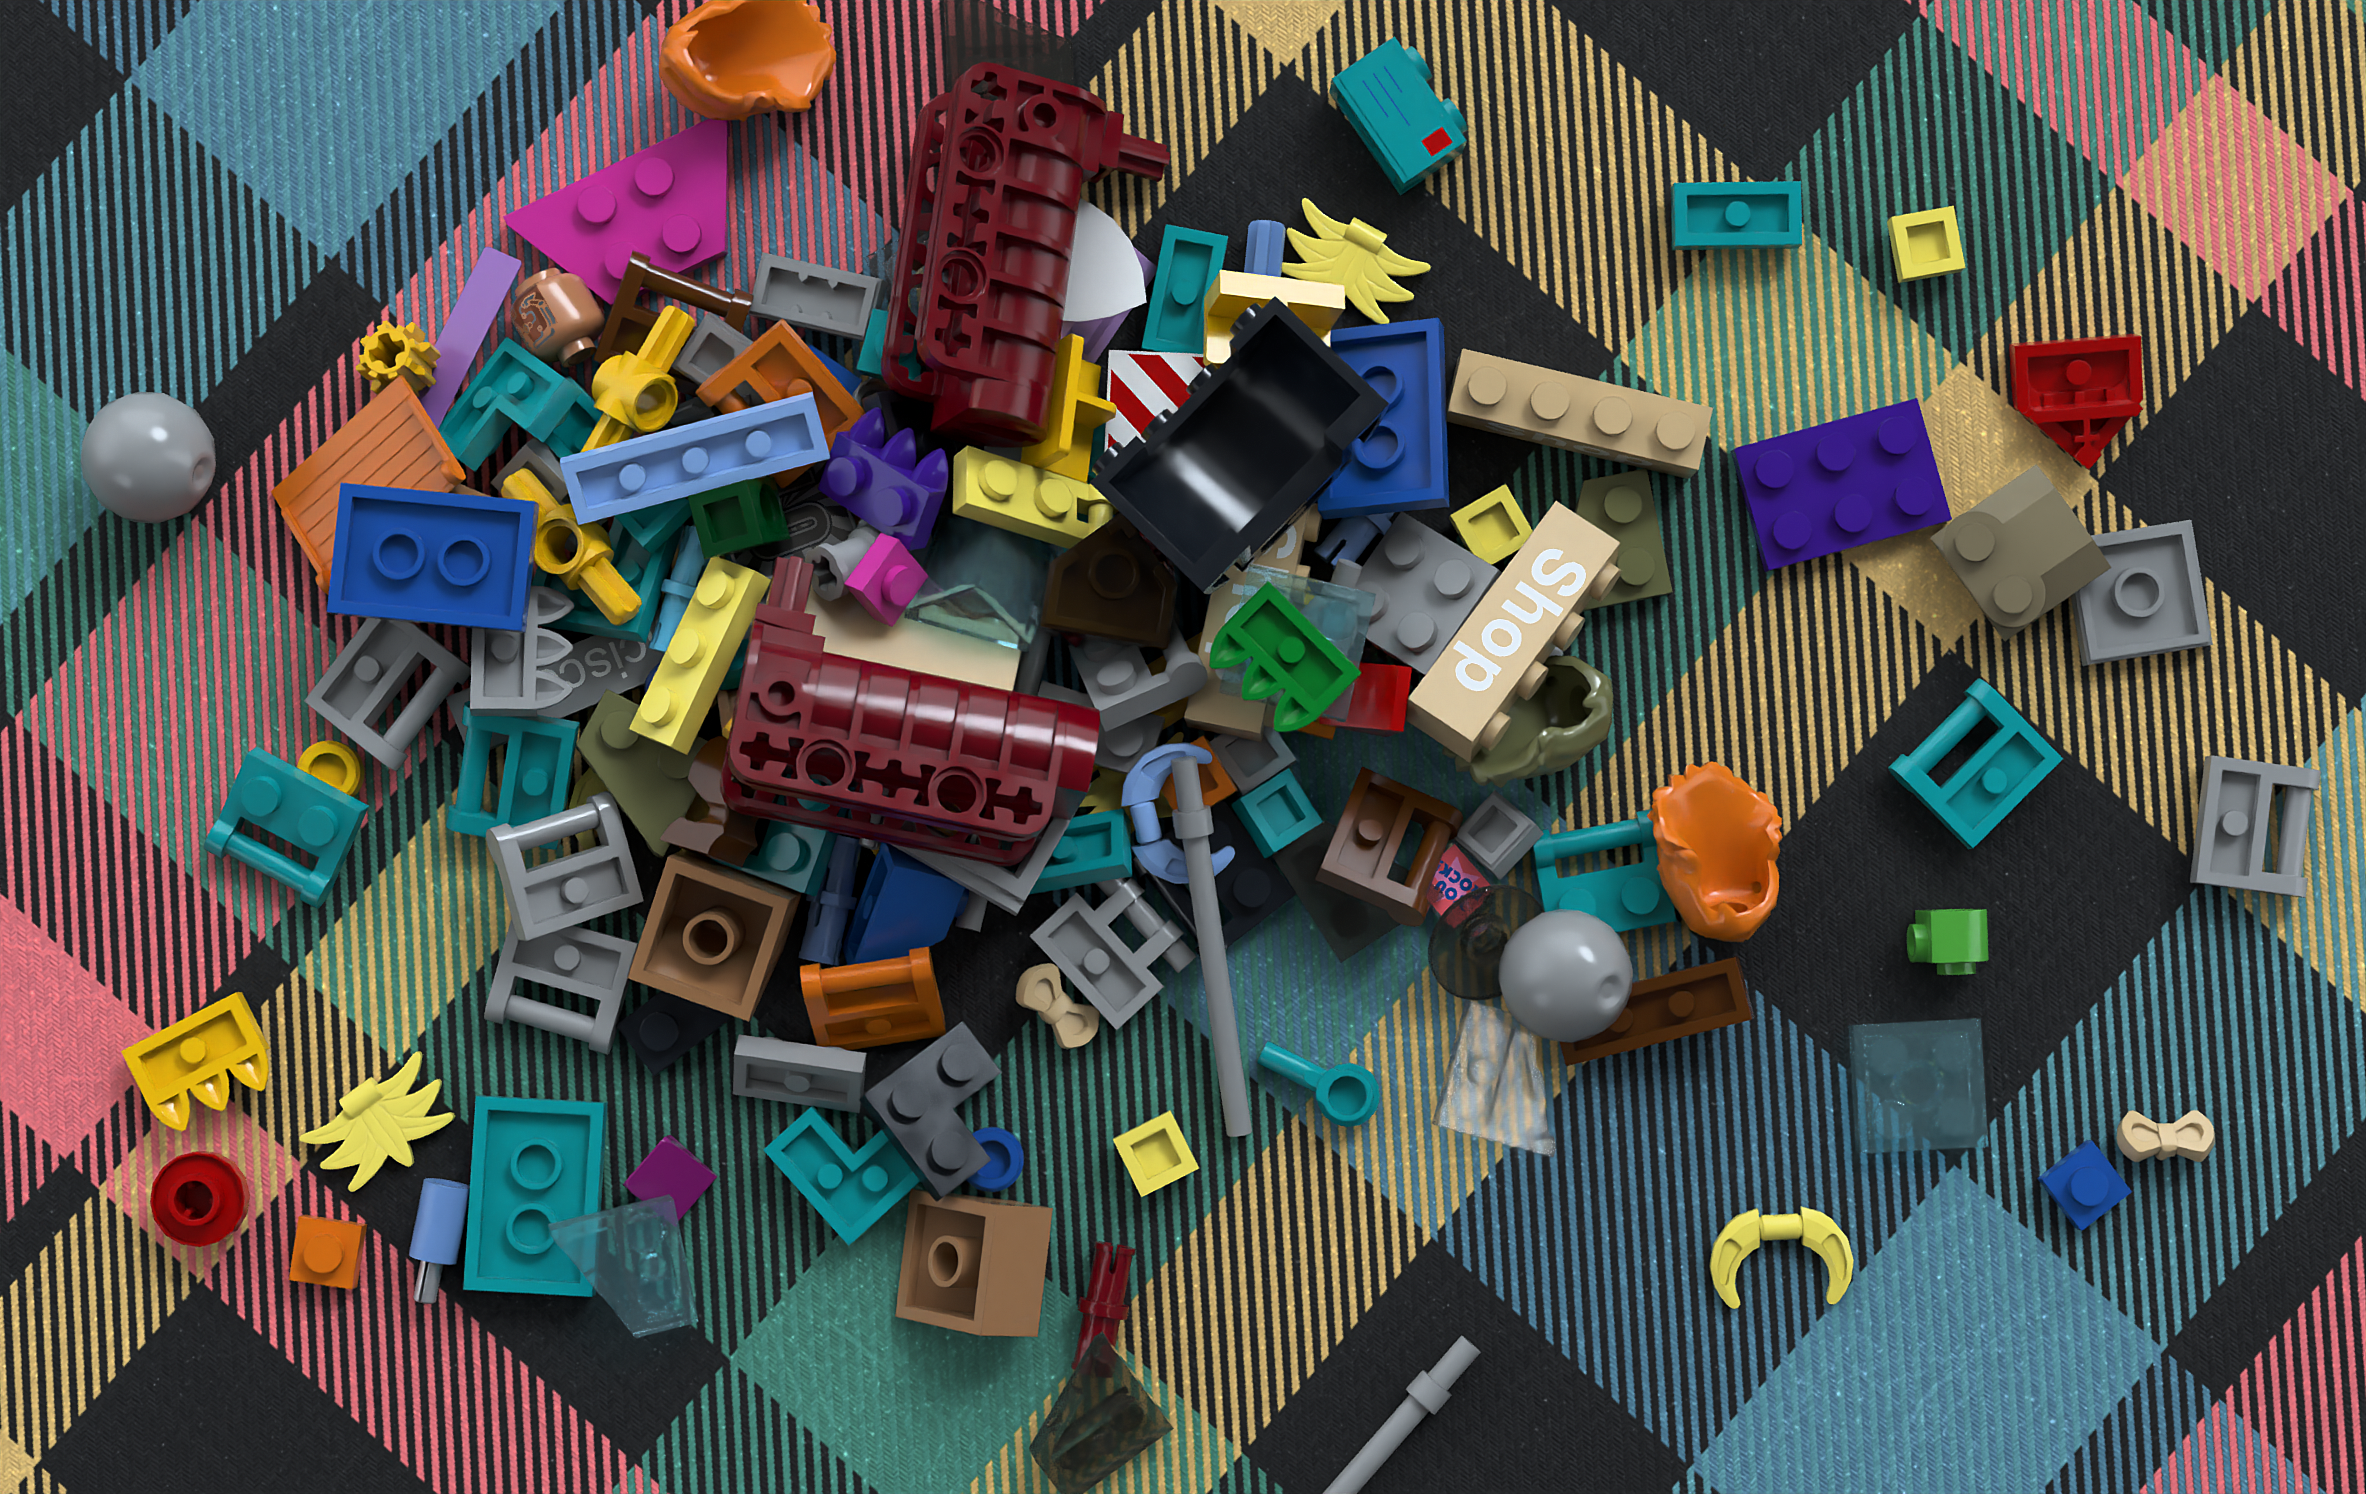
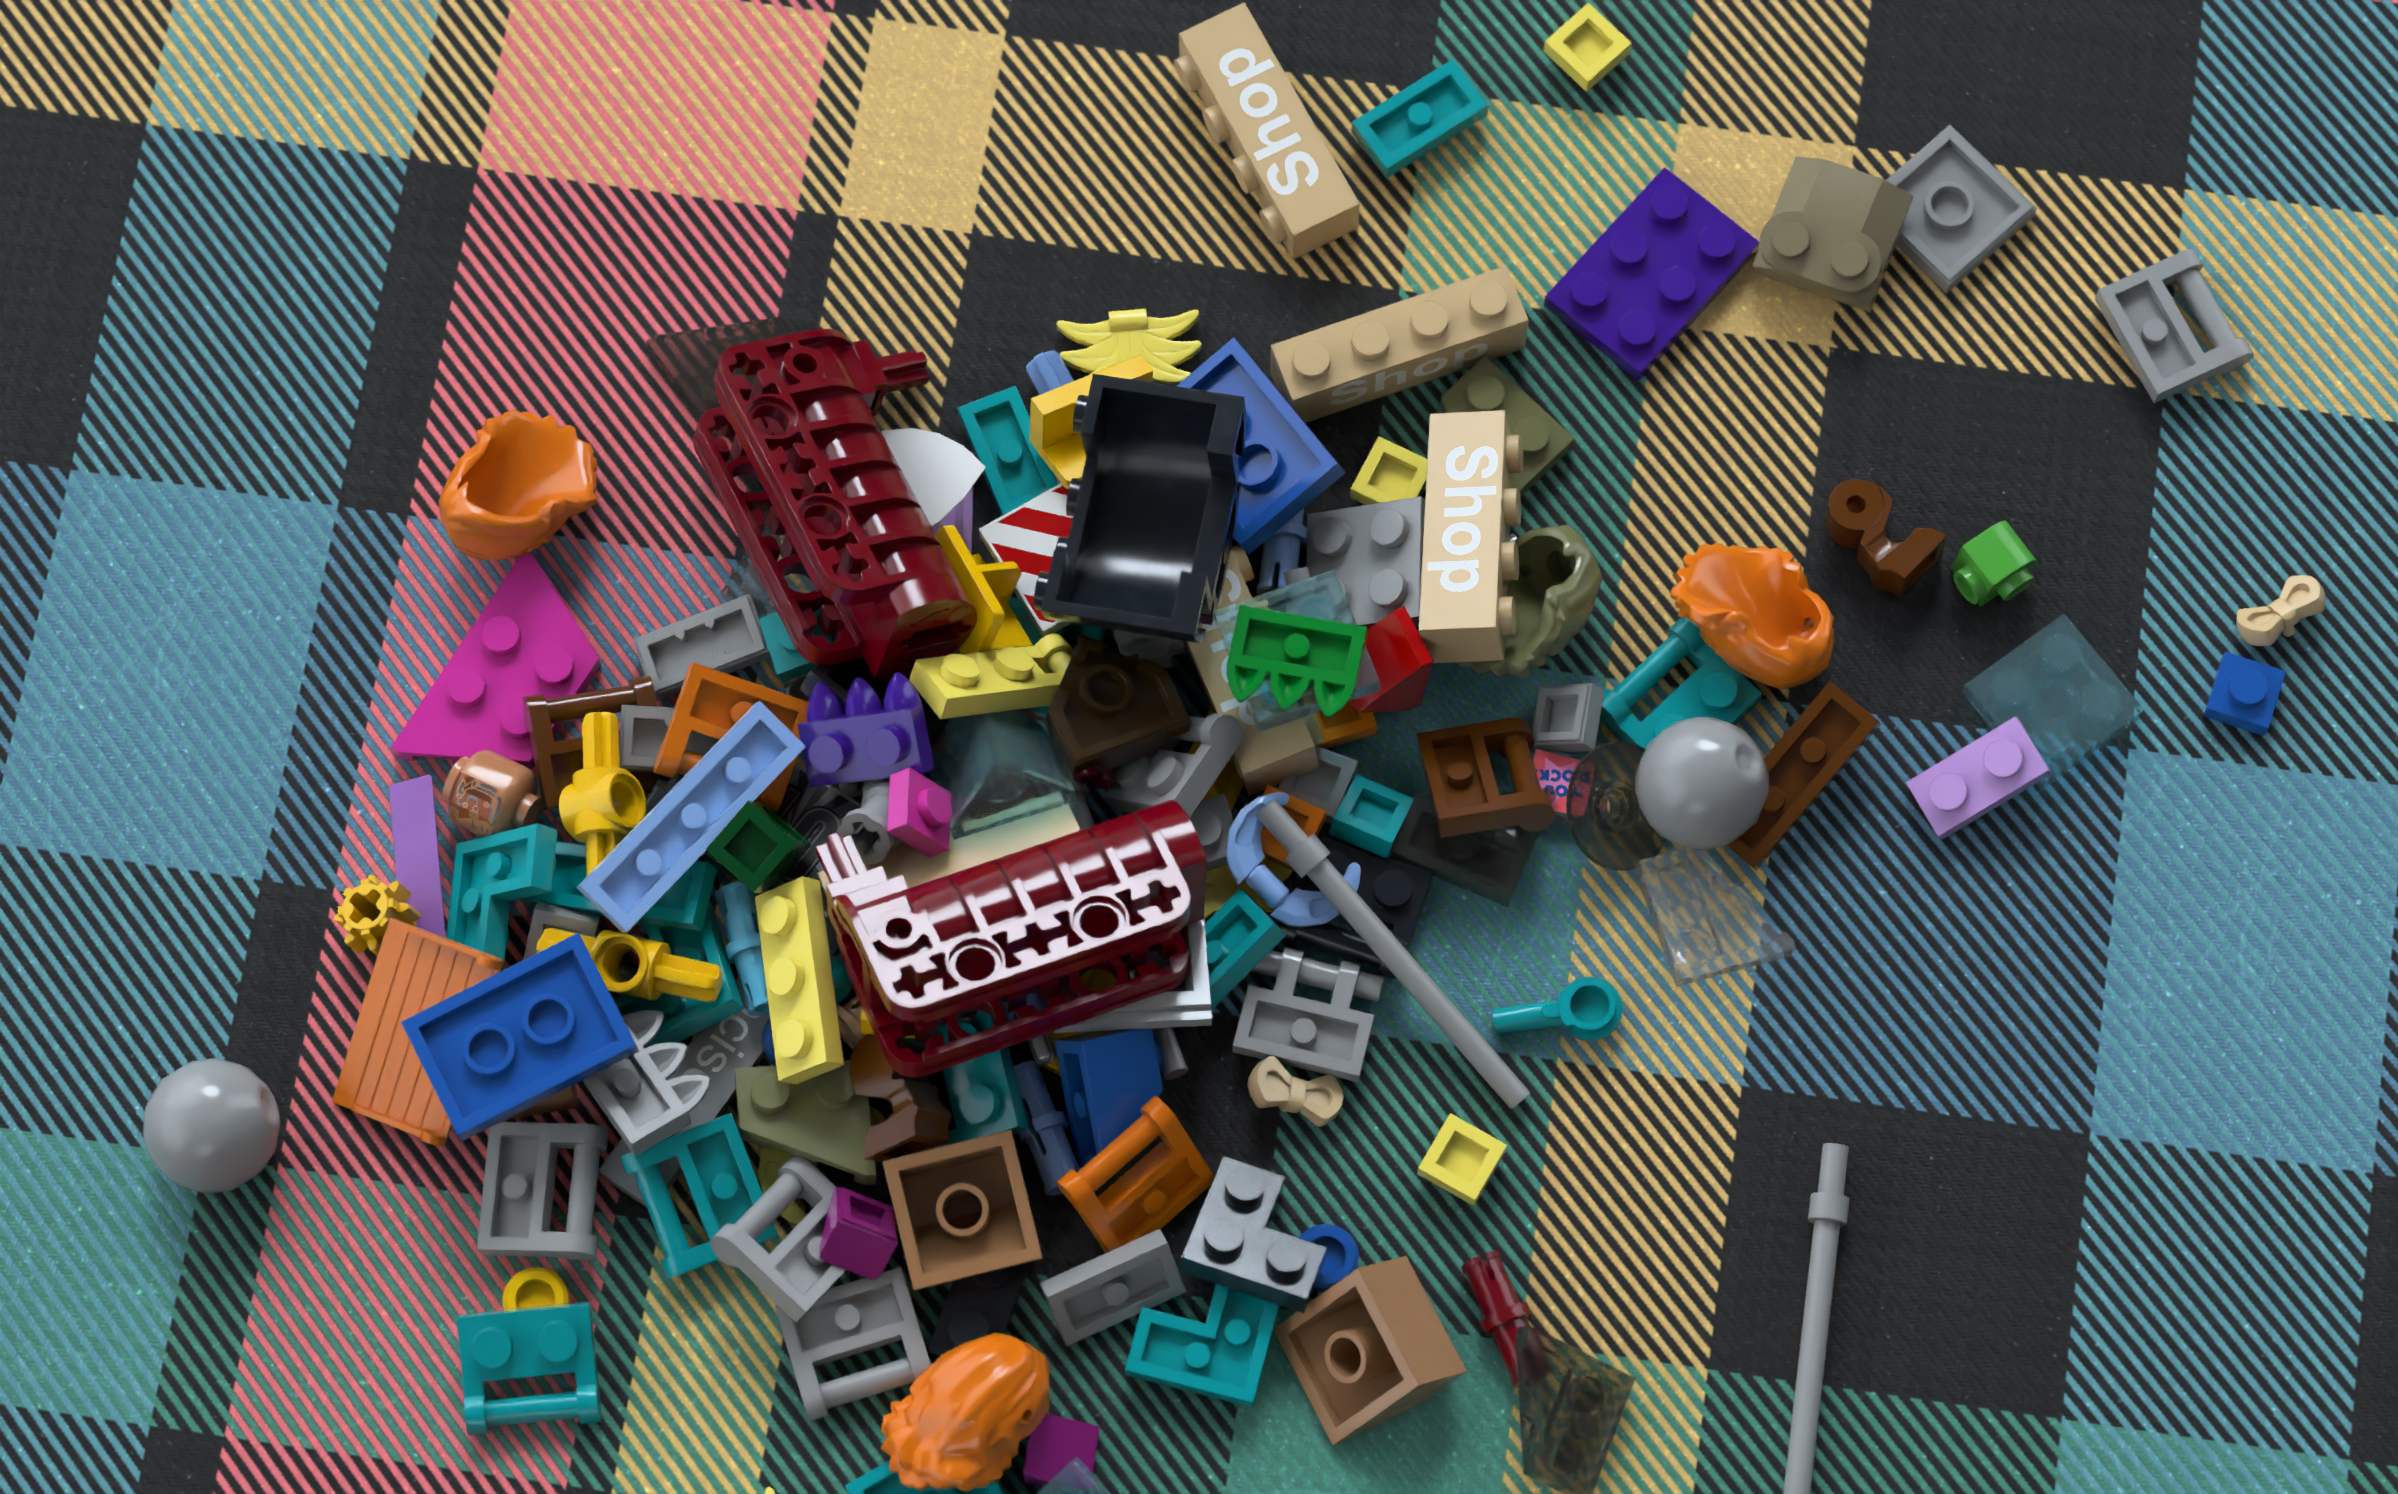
camera: 30 degrees left, 15 degrees down
(606, 1109) = (967, 1414): none -> orange piece
(617, 895) = (858, 1233): none -> magenta slope
(1399, 114) = (1091, 207): teal brick -> none
(1595, 143) = (1267, 131): none -> tan brick
(1744, 1234) = (2051, 870): light yellow piece -> none
(1806, 1114) = (1978, 778): none -> lavender plate
(1868, 822) = (1859, 520): none -> reddish brown leg
(1991, 779) = (1936, 420): teal plate -> none
(2078, 389) = (1788, 84): red slope -> none

